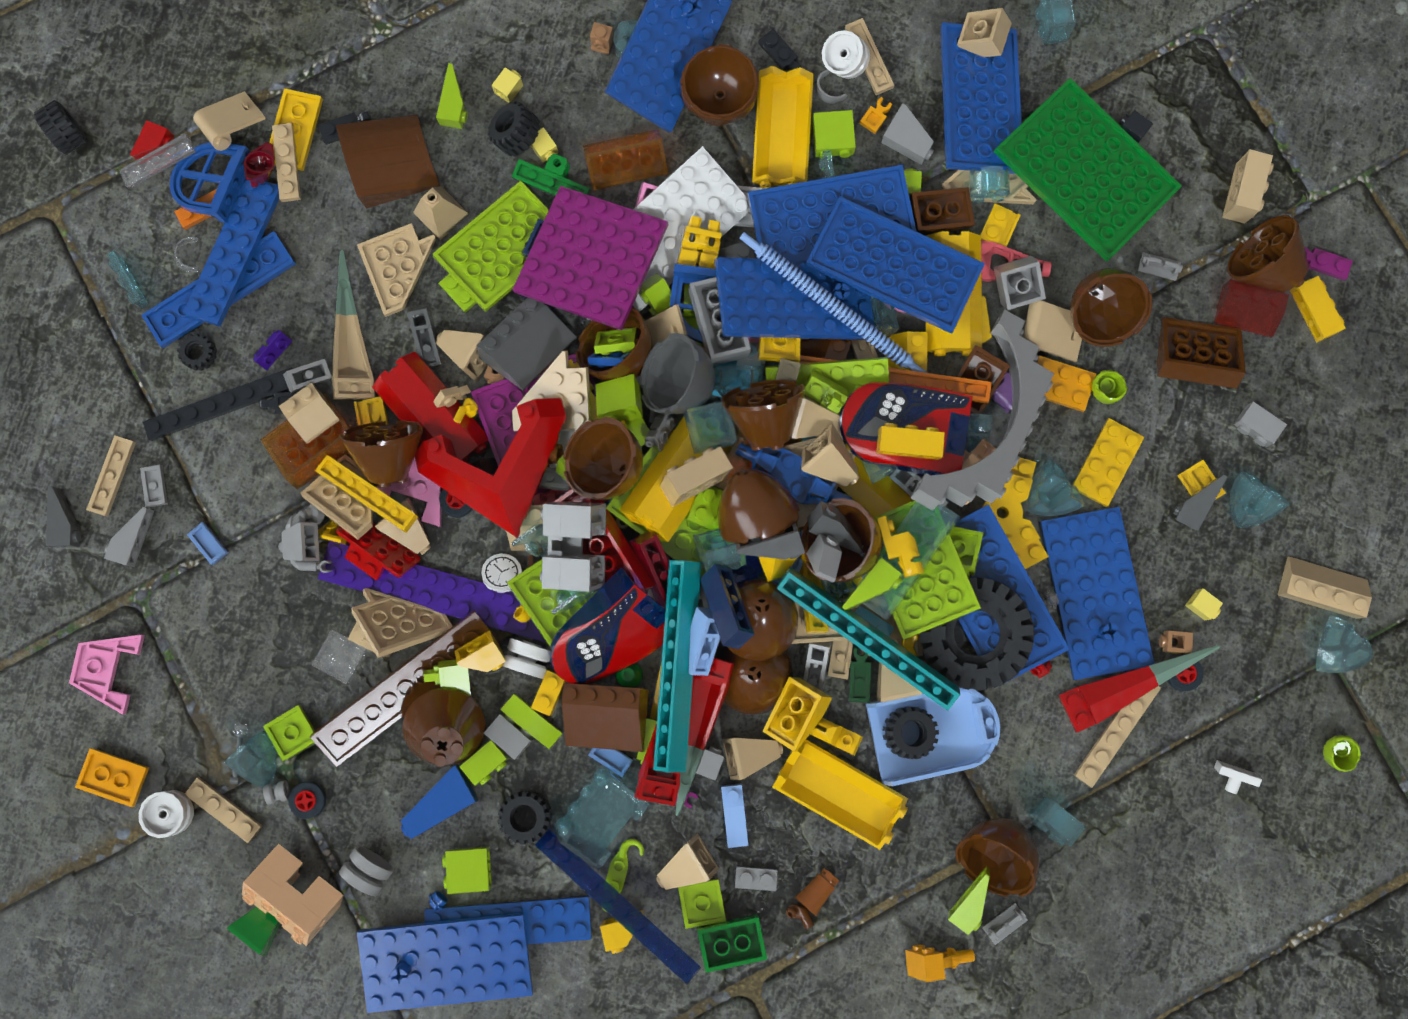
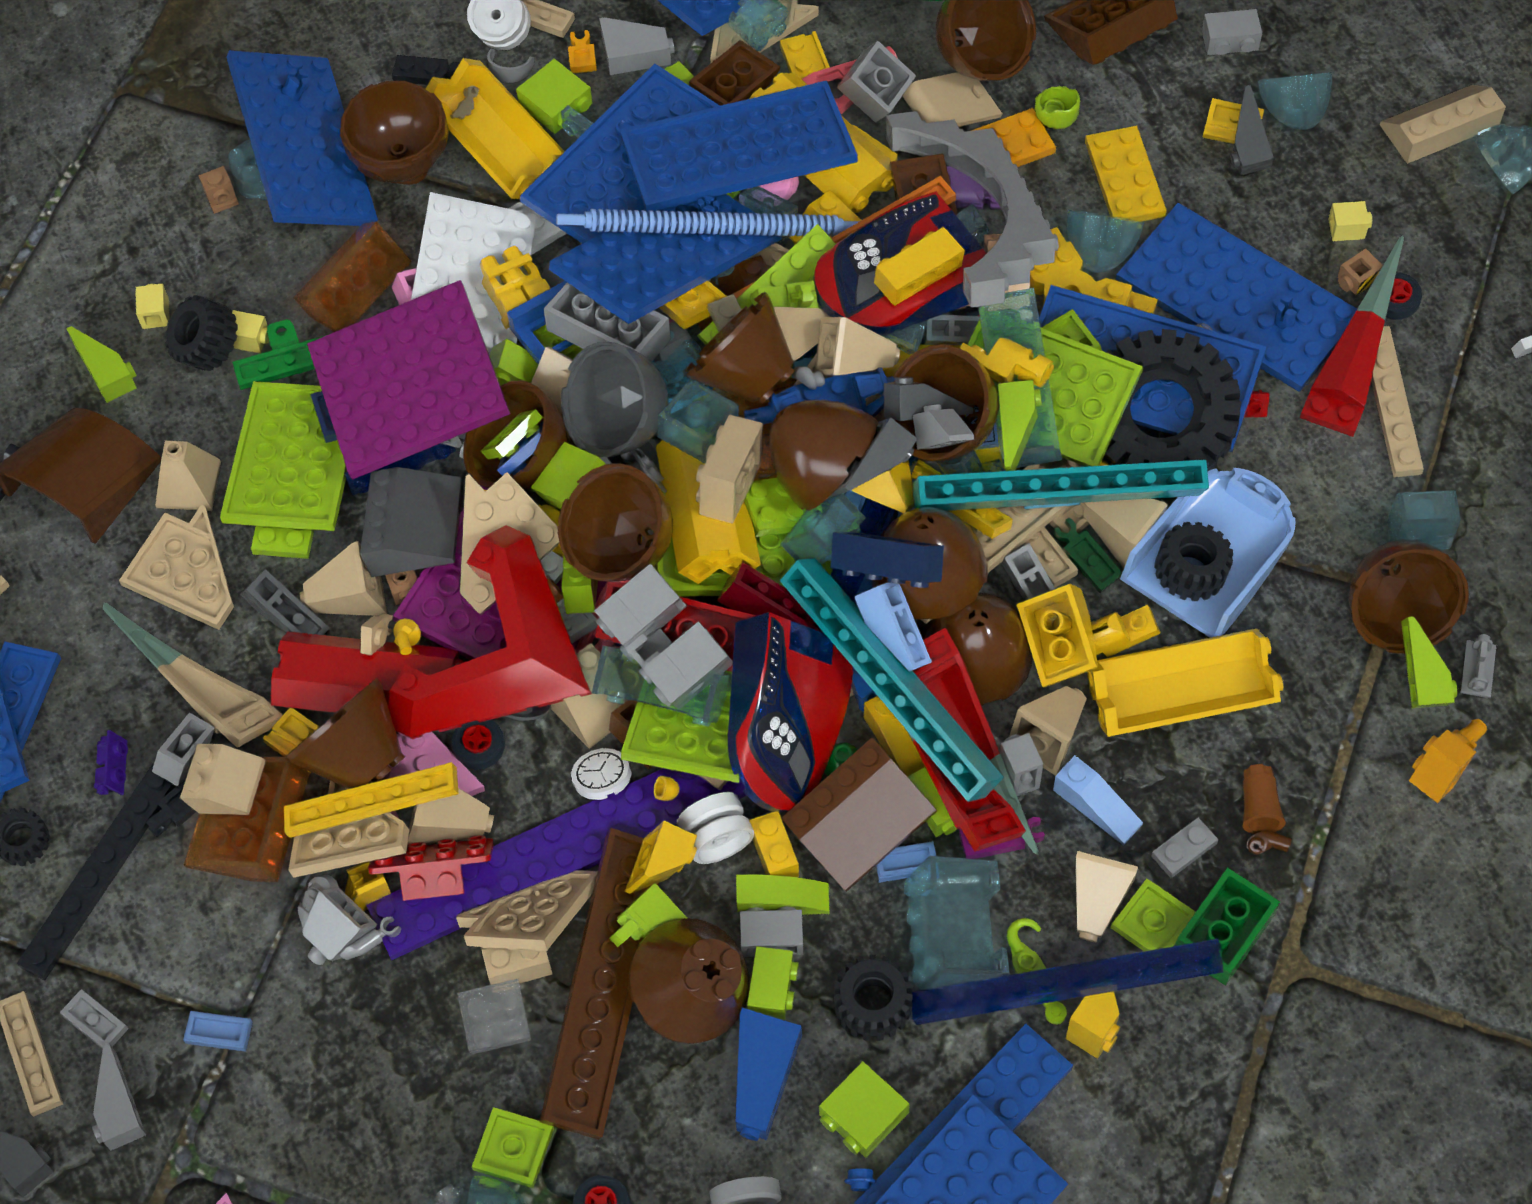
camera: 45 degrees left, 20 degrees down
(782, 97) = (465, 107): none -> dark tan piece
(794, 457) = (808, 378): none -> light grey arm

